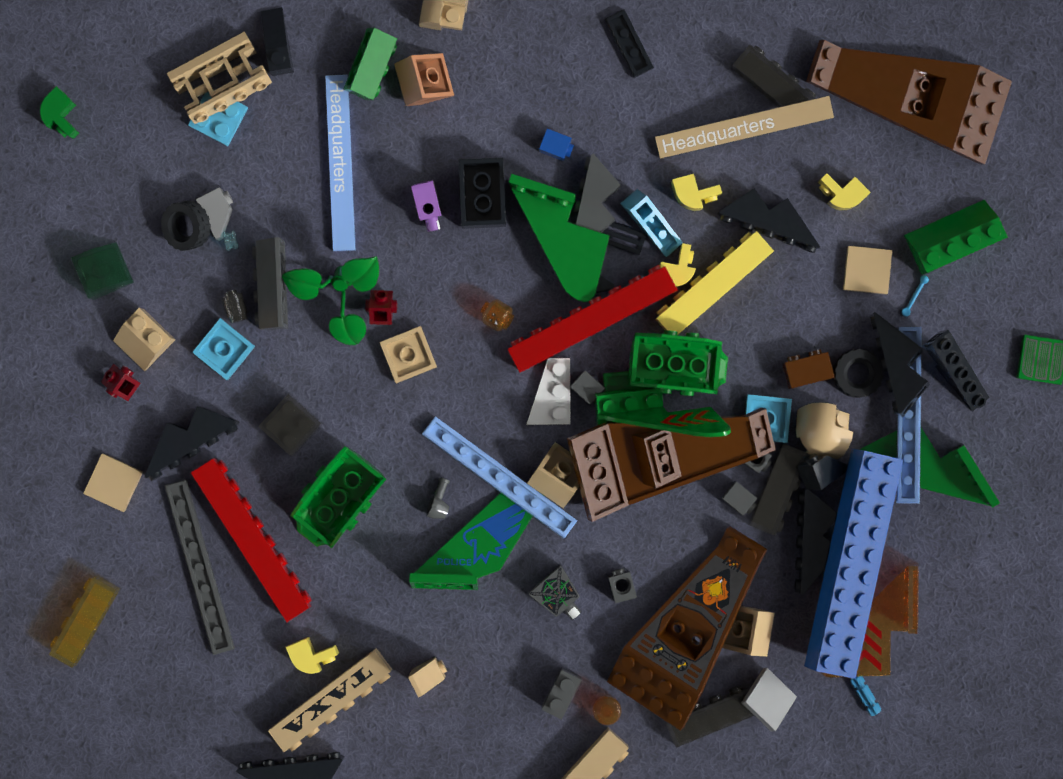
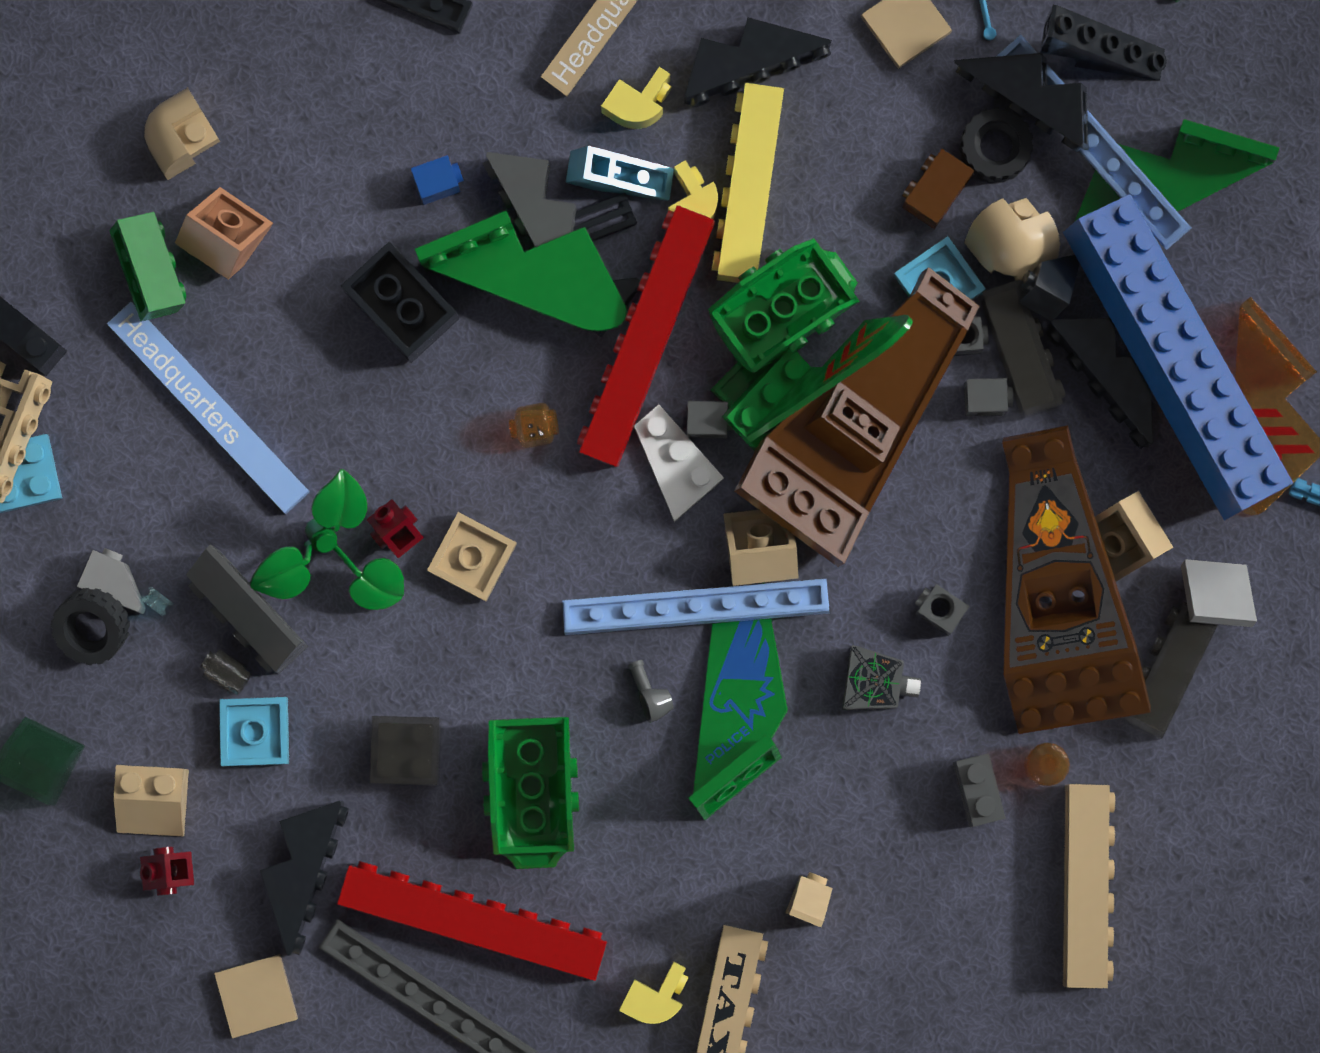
camera: 40 degrees left, 5 degrees down
(426, 193) = (333, 359): medium lavender torso -> none

